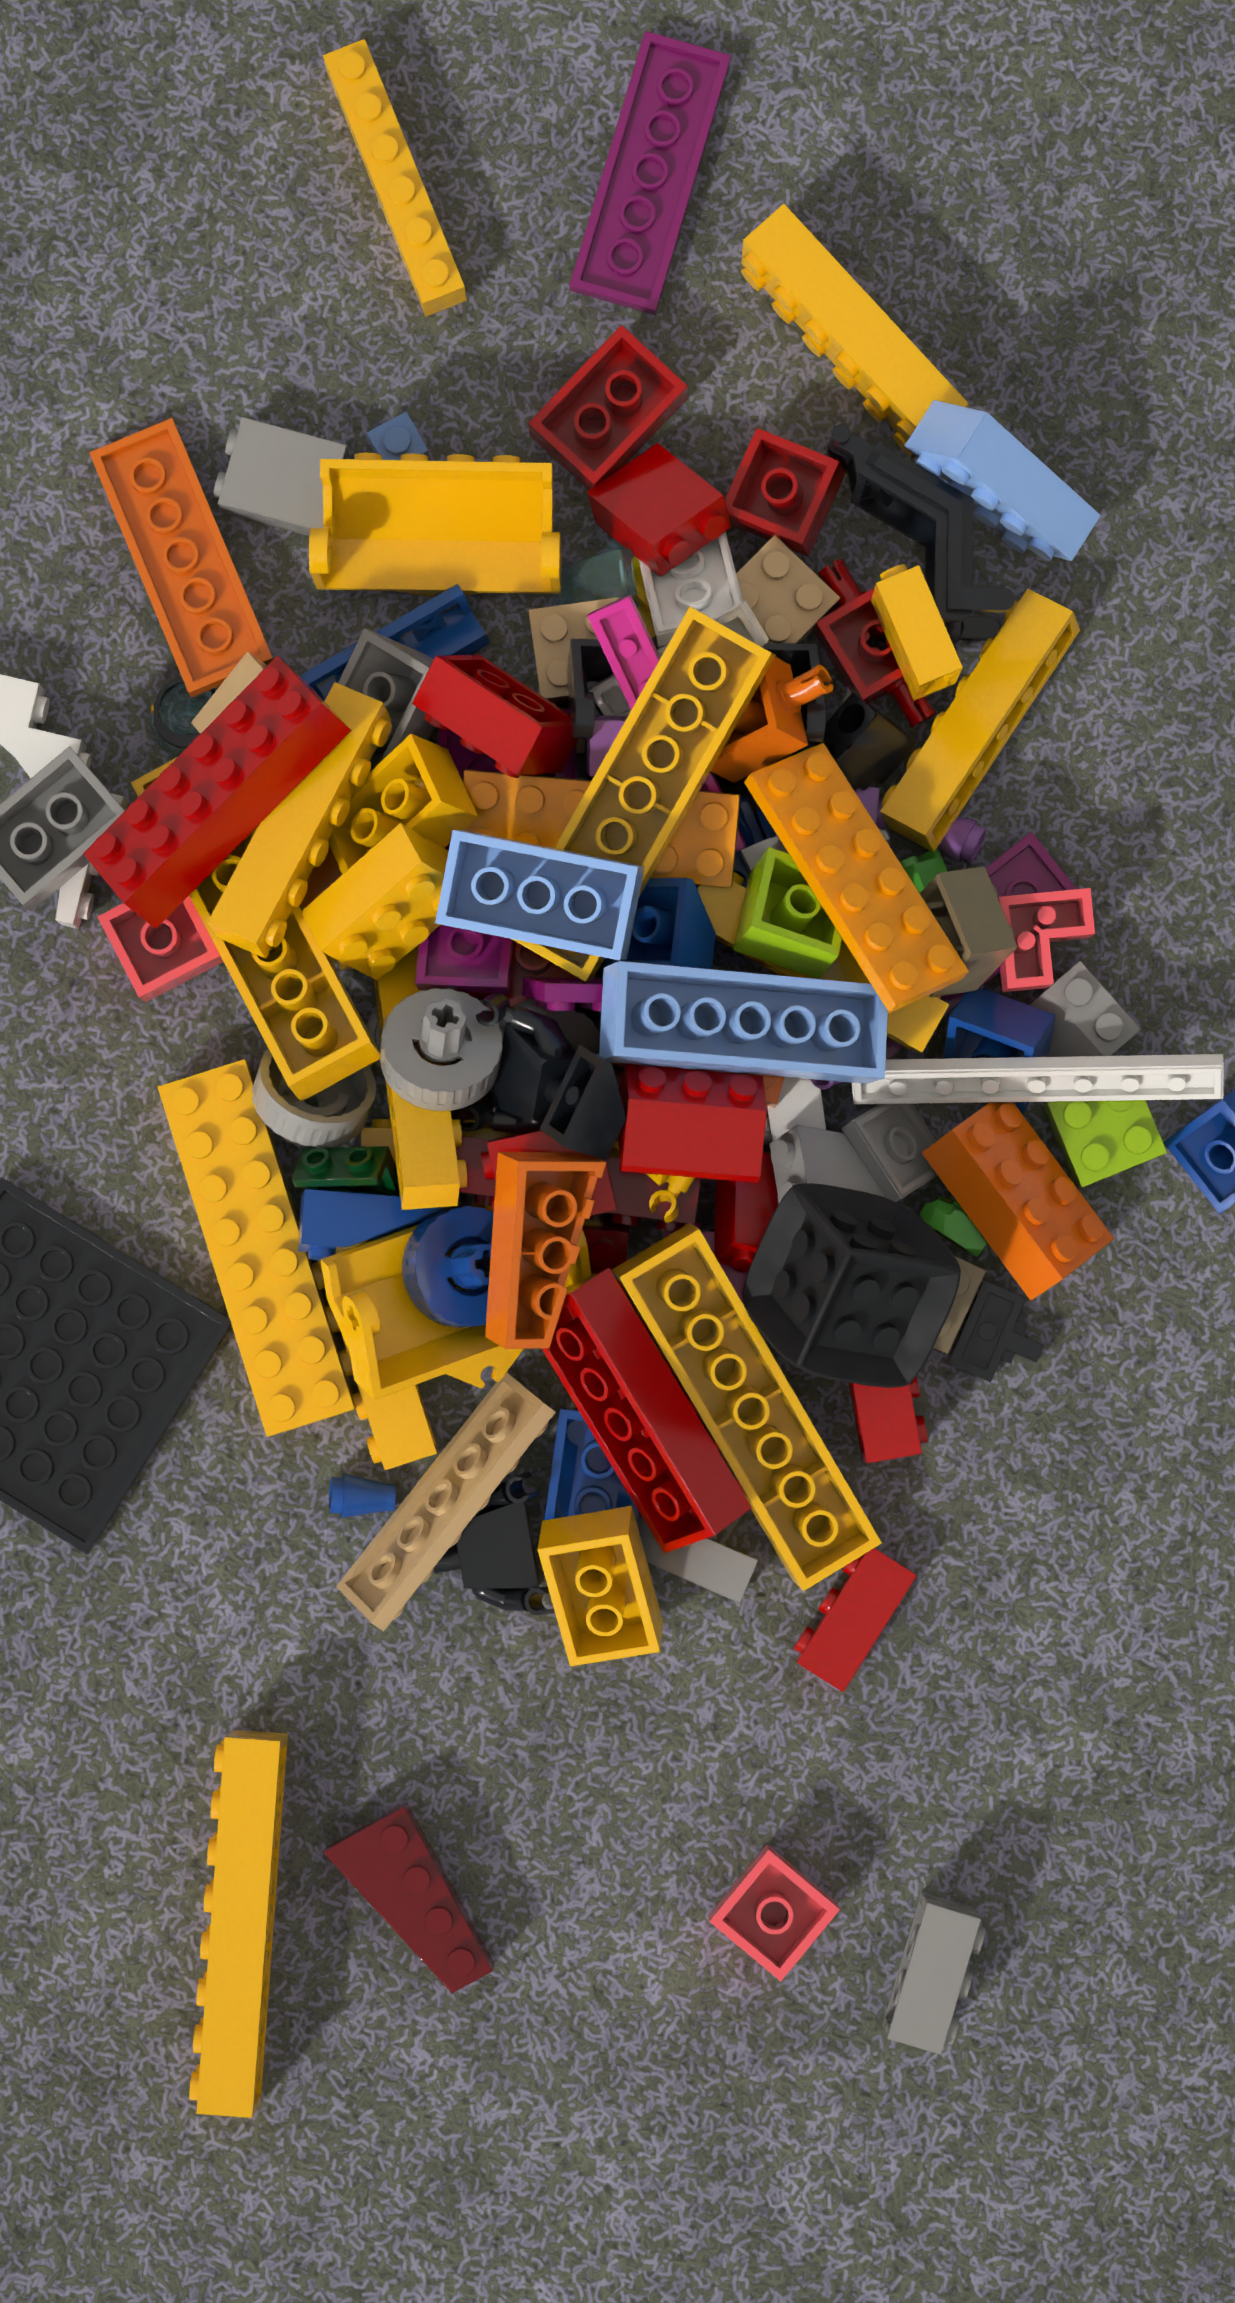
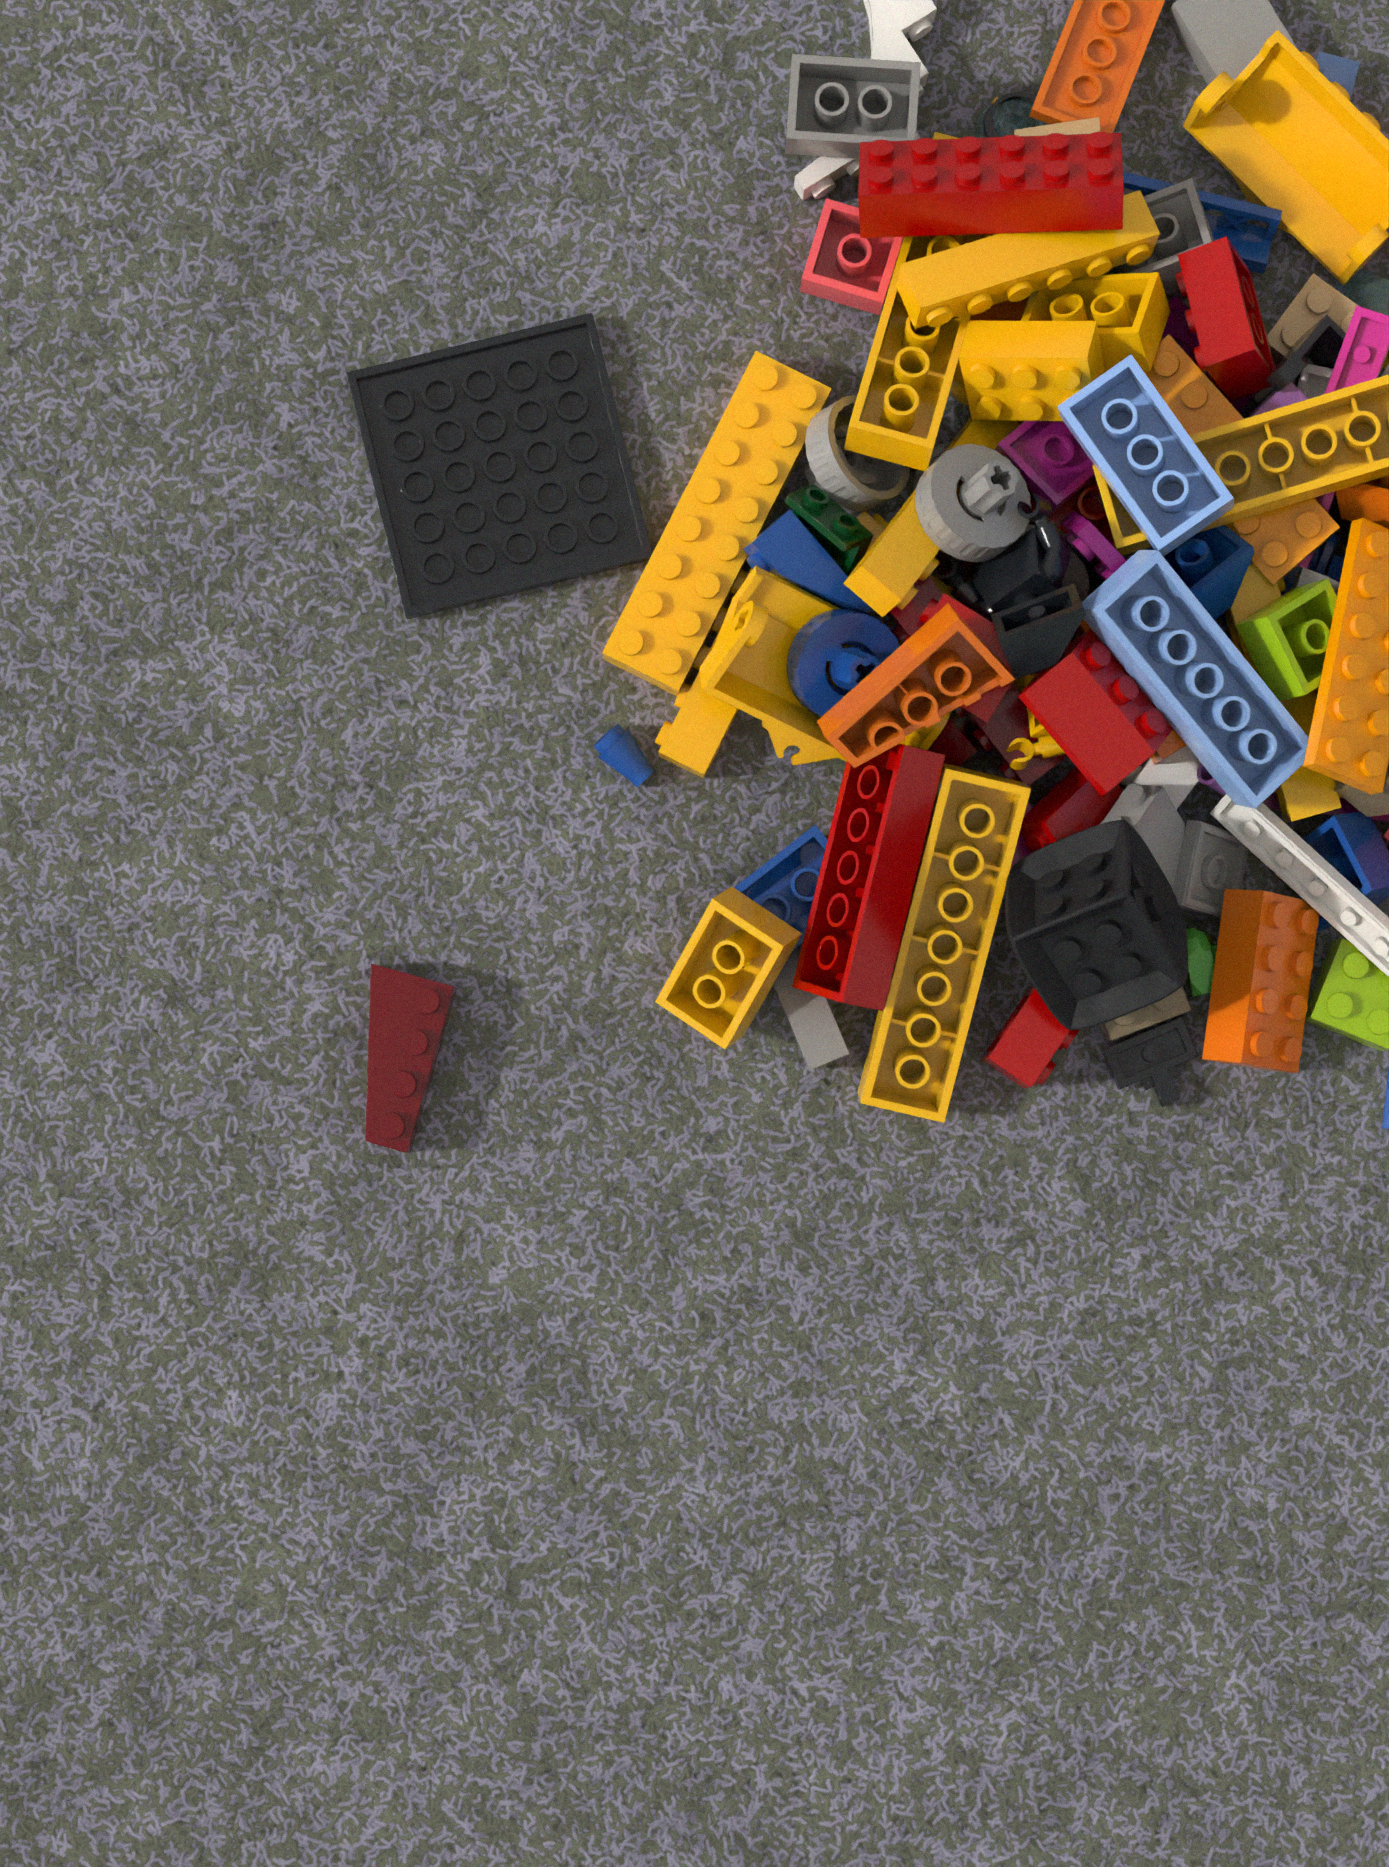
camera: 35 degrees right, 0 degrees up
(241, 1923) = (270, 958): yellow brick -> none
(445, 1501) = (679, 811): tan plate -> none
(499, 1552) = (681, 877): black torso -> none
(773, 1912) = (630, 1298): coral brick -> none
(853, 1618) = (875, 1155): red brick -> none
(933, 1974) = (698, 1443): light grey brick -> none

